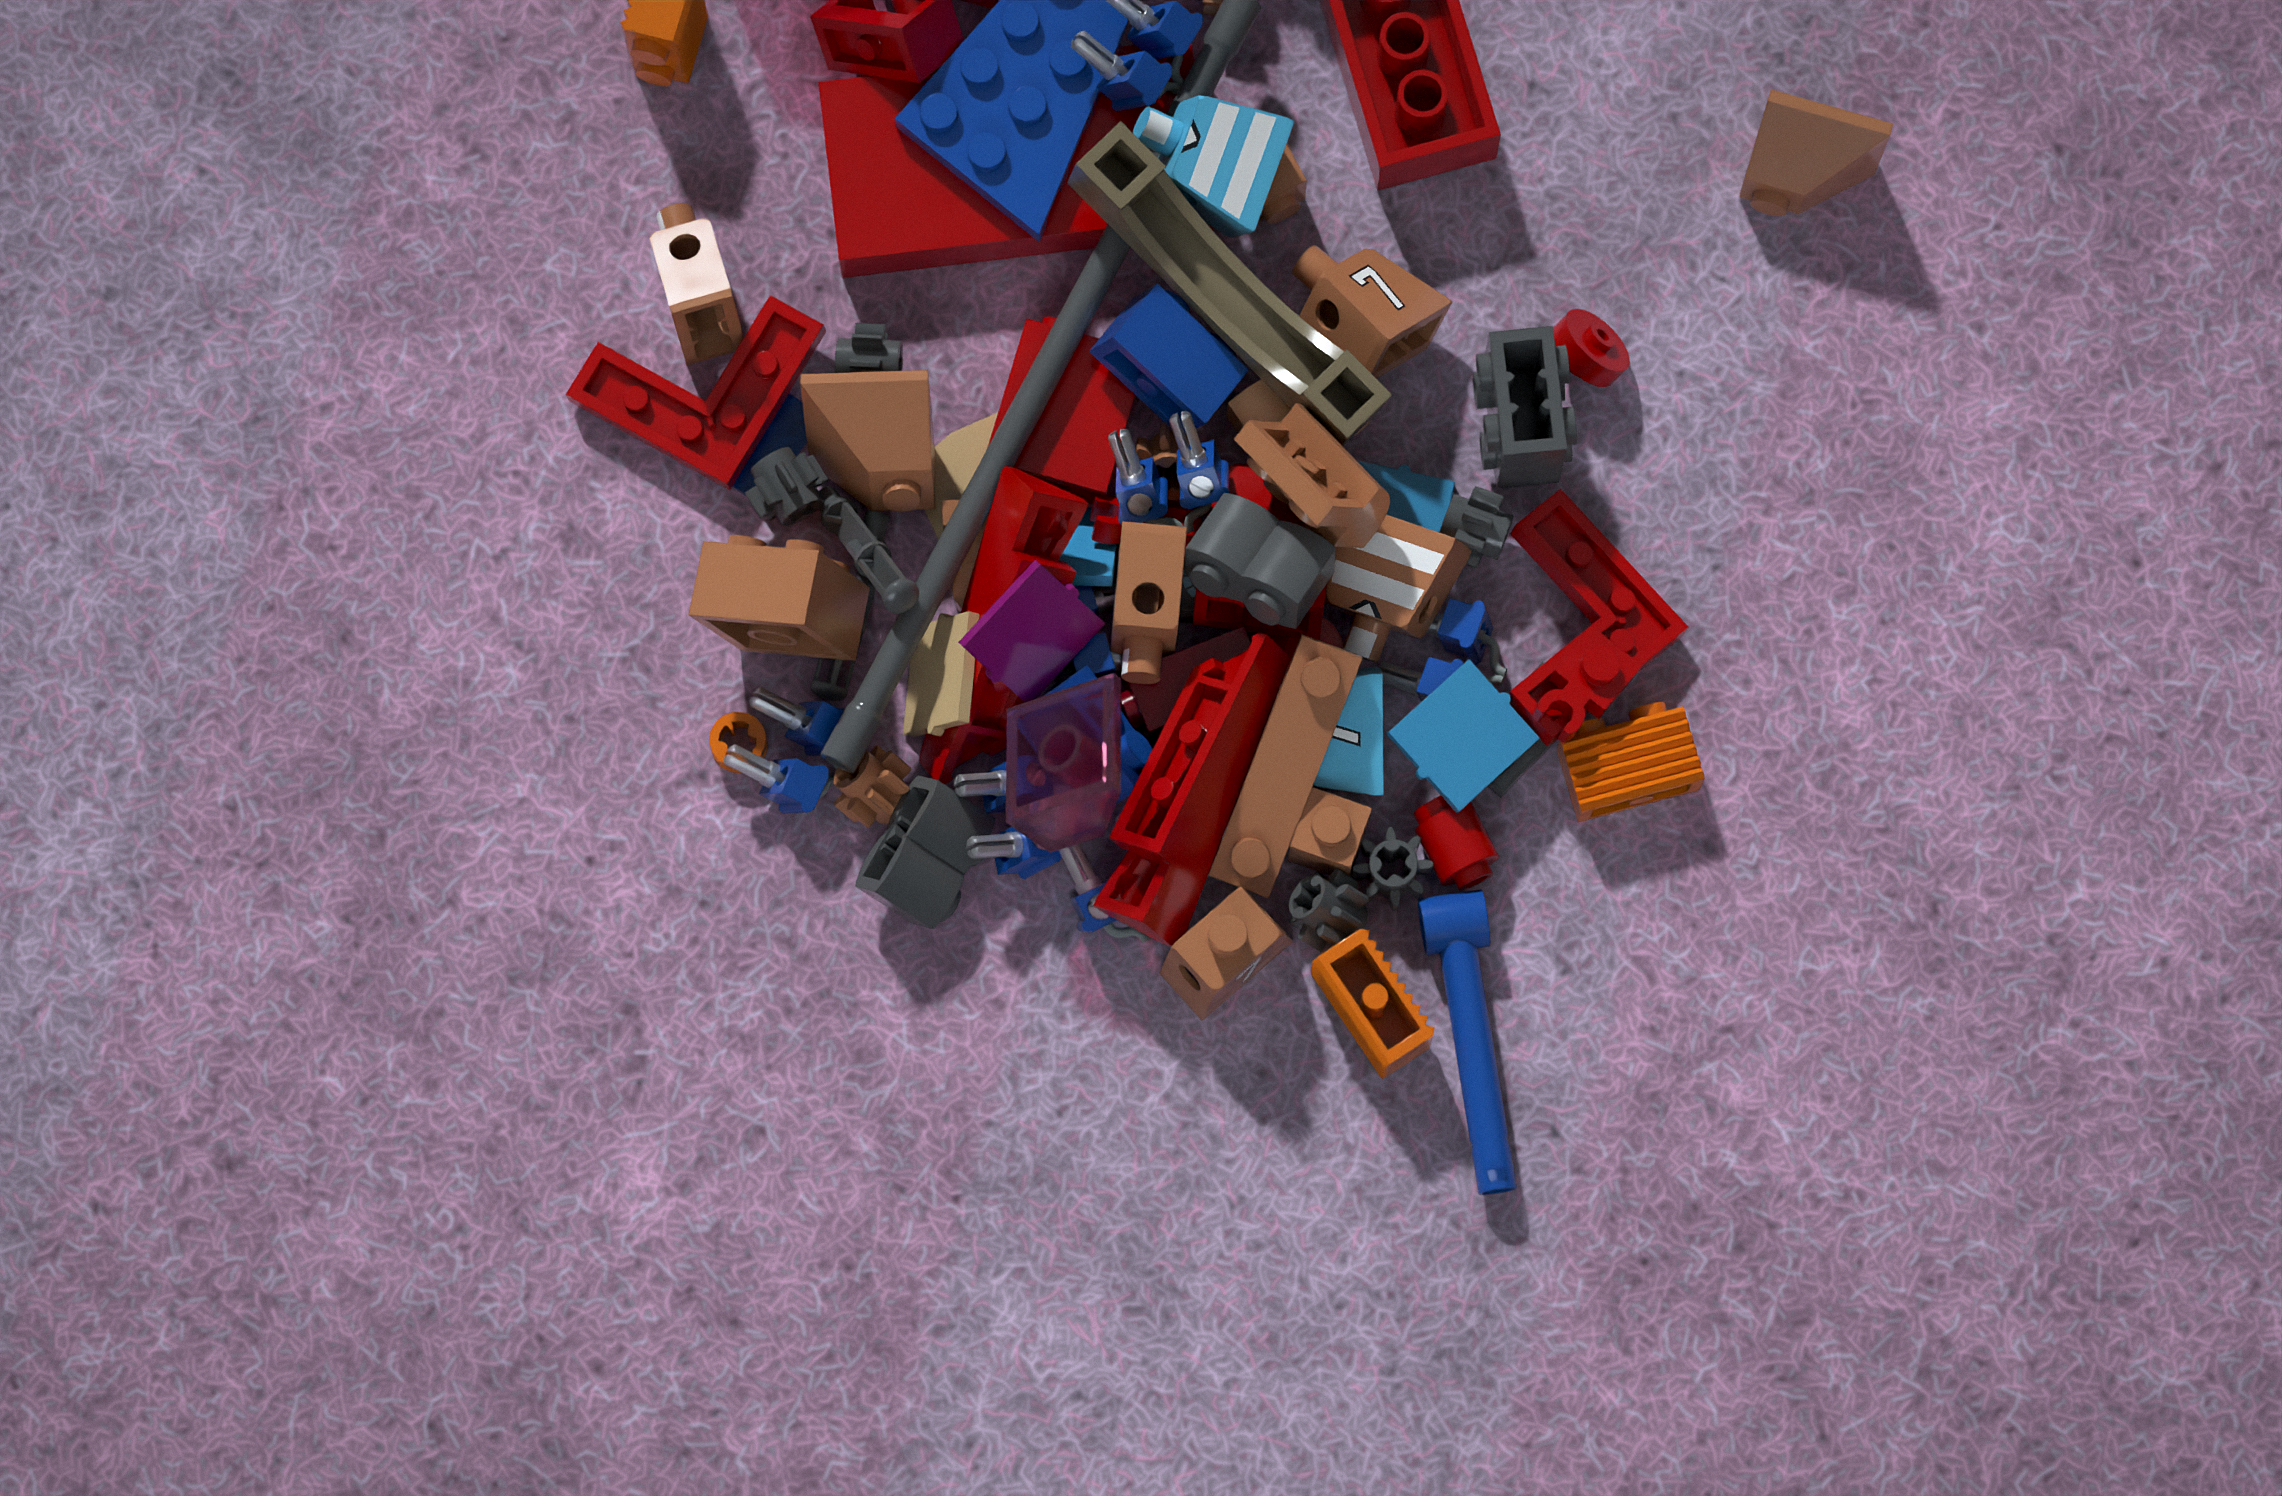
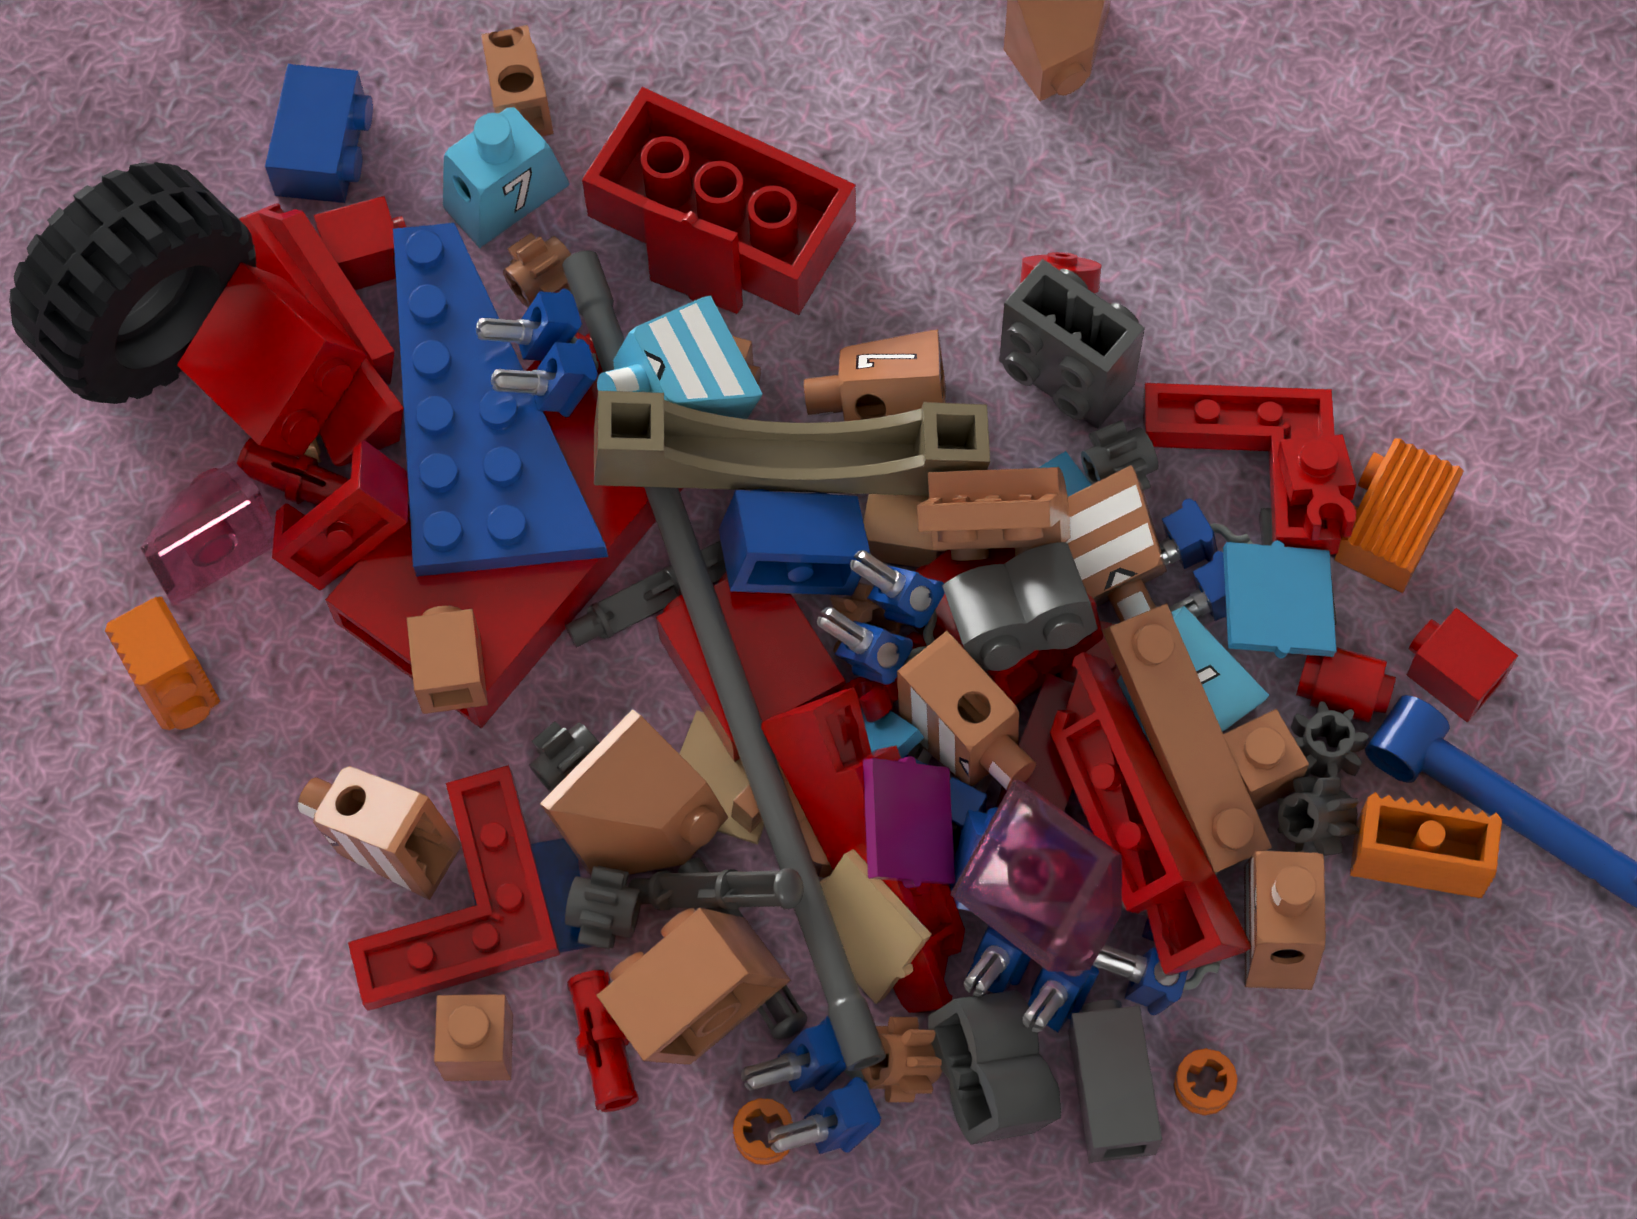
camera: 45 degrees left, 10 degrees down
(613, 489) = (473, 1037): none -> nougat brick
(672, 609) = (601, 1043): none -> red pin
(847, 209) = (446, 659): none -> nougat brick
(992, 941) = (1114, 1081): none -> dark grey brick
(1034, 292) = (638, 601): none -> dark grey piece
(1068, 988) = (1195, 1064): none -> orange bush
(1334, 74) = (693, 256): none -> red piece
(1549, 908) = (1459, 663): none -> red brick

